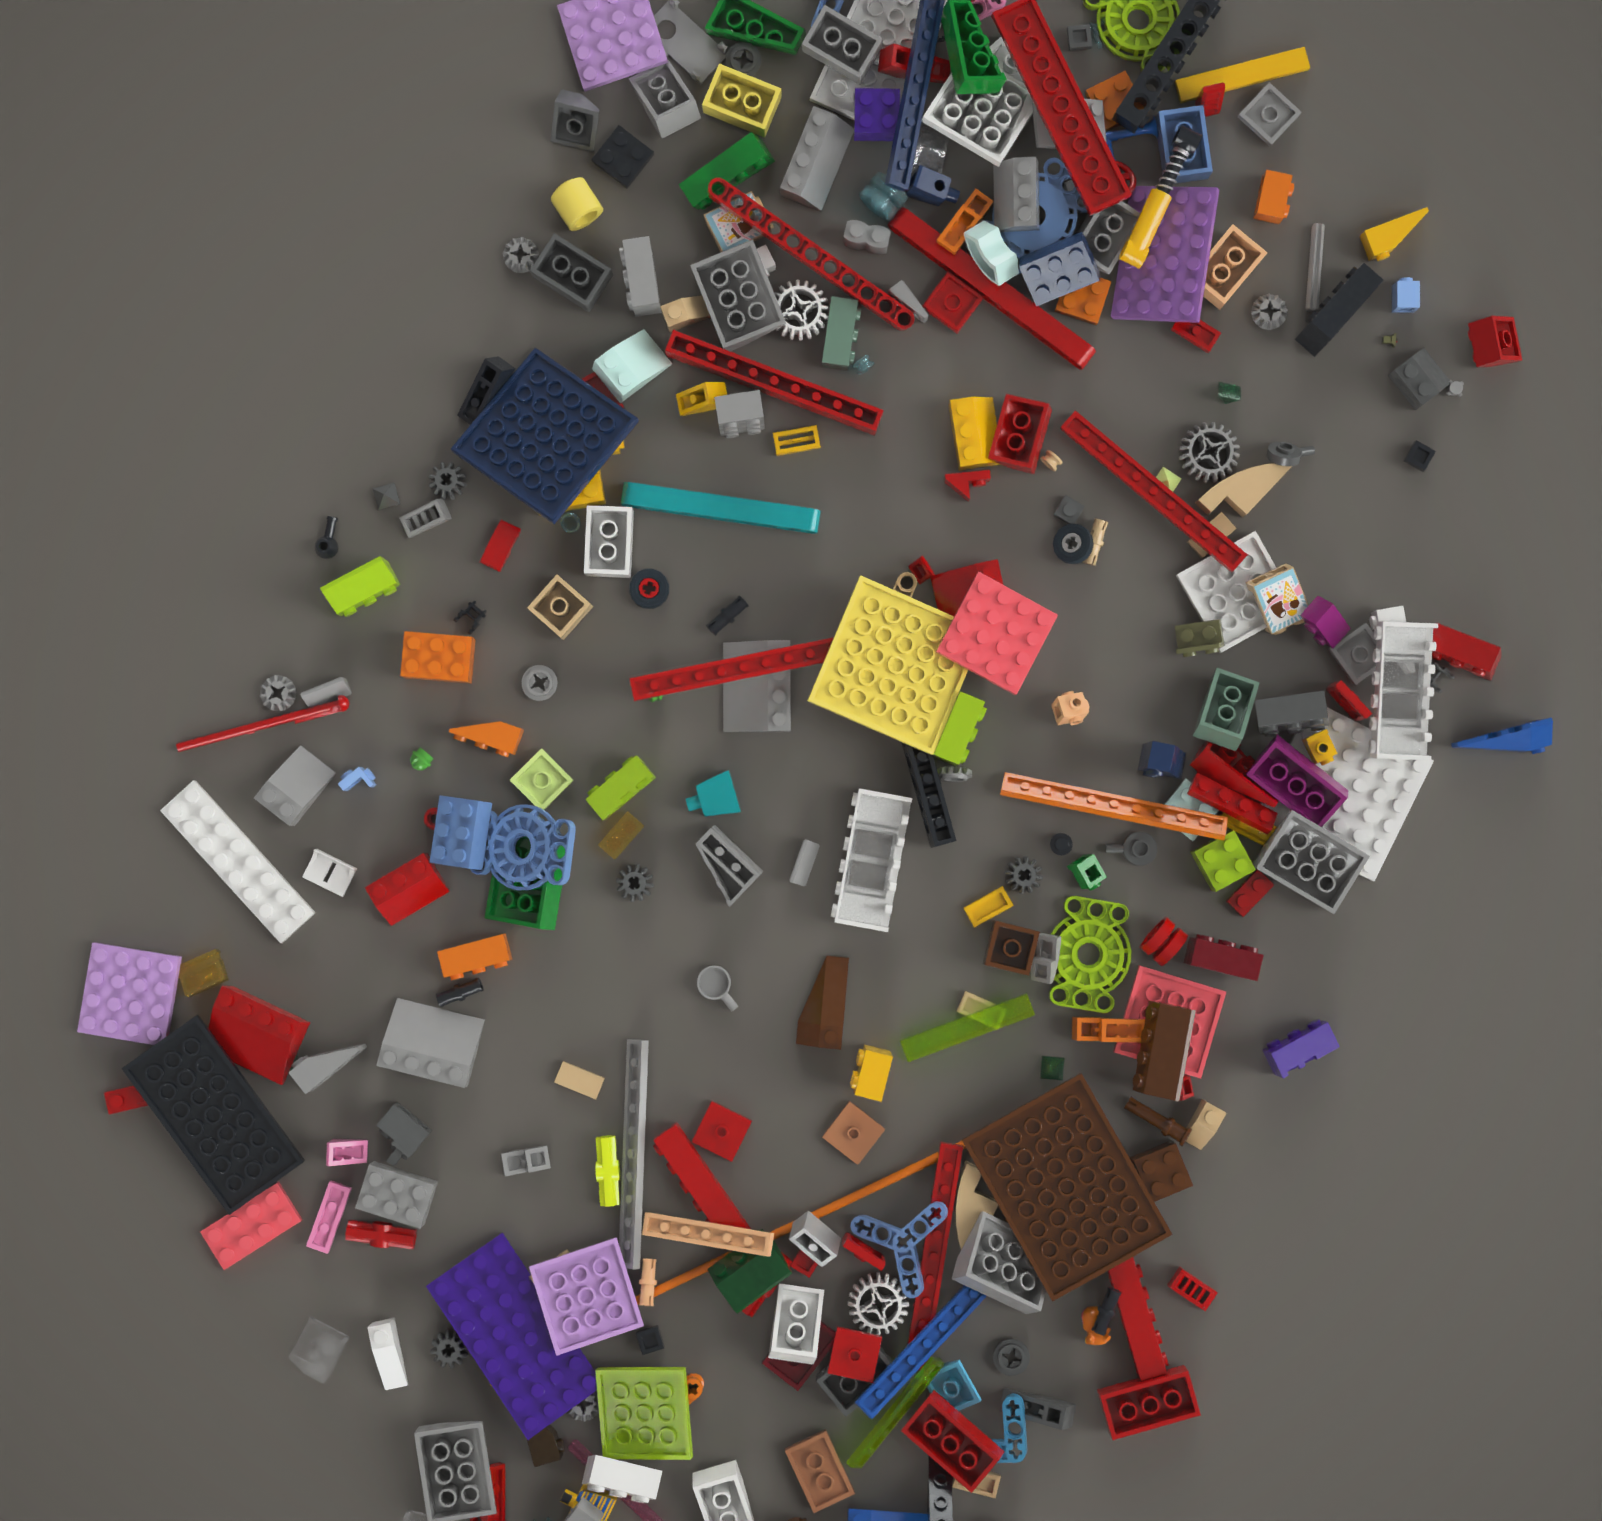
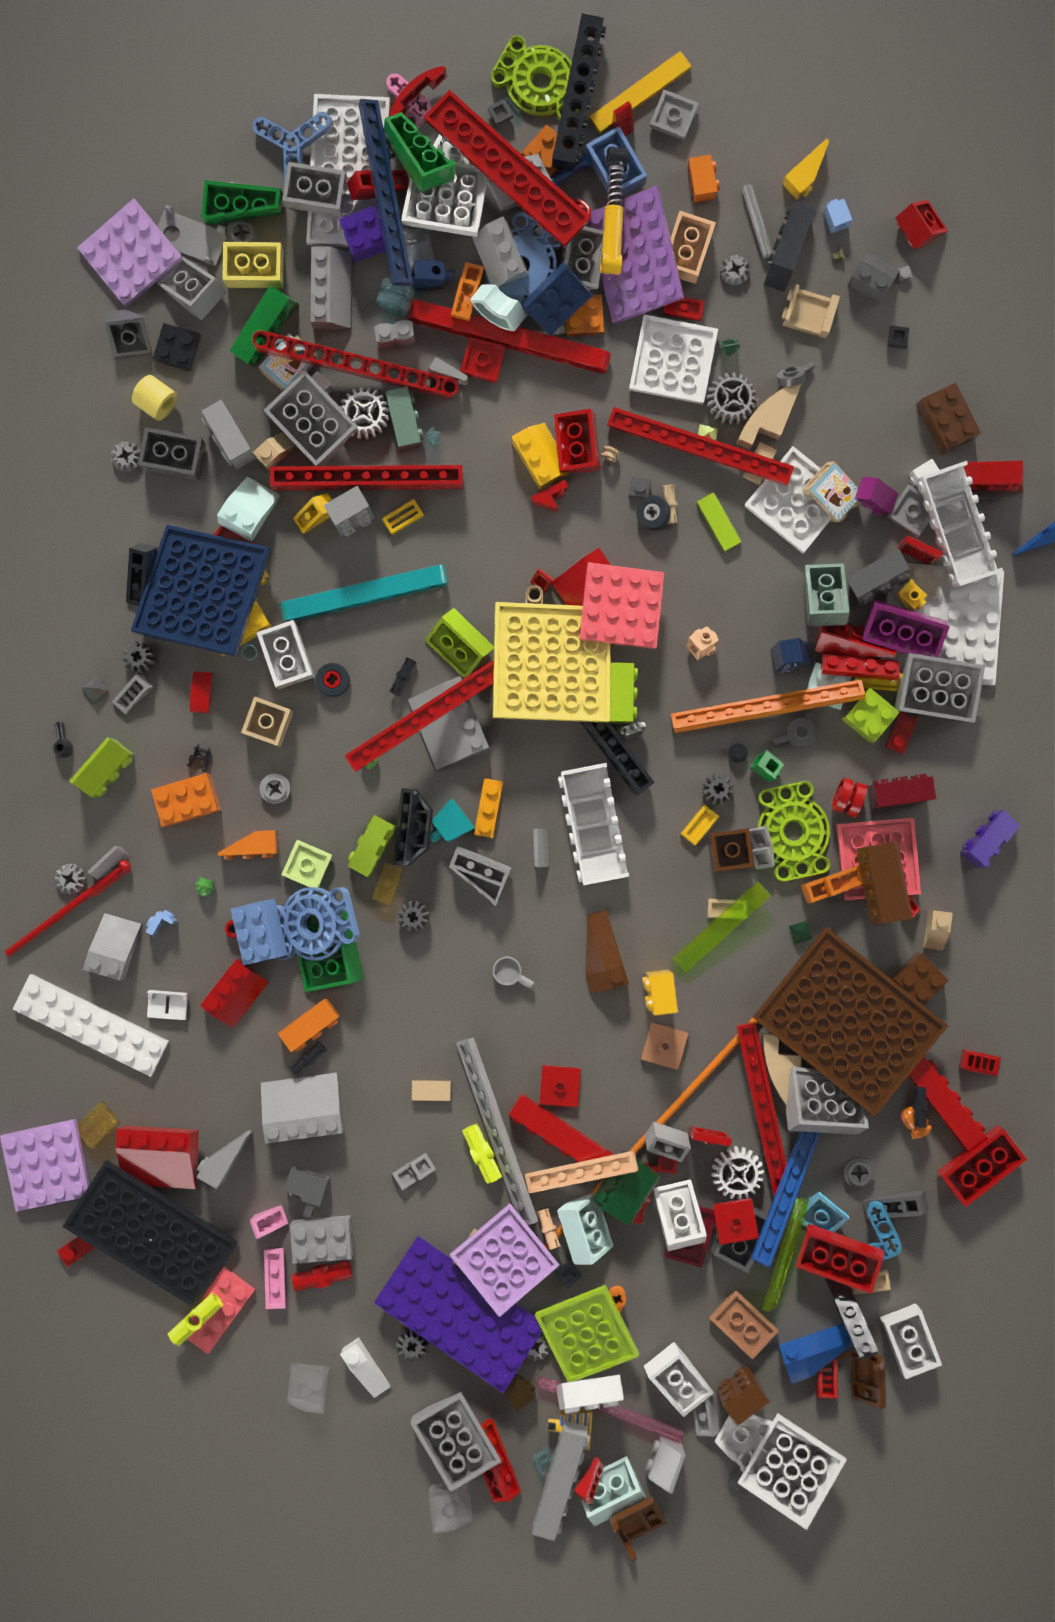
camera: 25 degrees left, 0 degrees up
(213, 1230) = (187, 1327): none -> neon yellow piece
(672, 785) = (412, 827): none -> black wedge
(687, 1299) = (585, 1230): none -> light aqua slope
(764, 796) = (488, 808): none -> light orange plate
(803, 603) = (459, 643): none -> lime slope
(893, 1240) = (741, 1124): medium blue piece -> none
(1141, 582) = (718, 522): none -> lime tile
(1162, 384) = (673, 359): none -> white plate
(1168, 1126) = (911, 941): reddish brown pin -> none
(1199, 637) = (782, 546): olive bracket -> none
(1333, 390) = (809, 312): none -> tan panel
(1439, 568) = (948, 418): none -> reddish brown brick

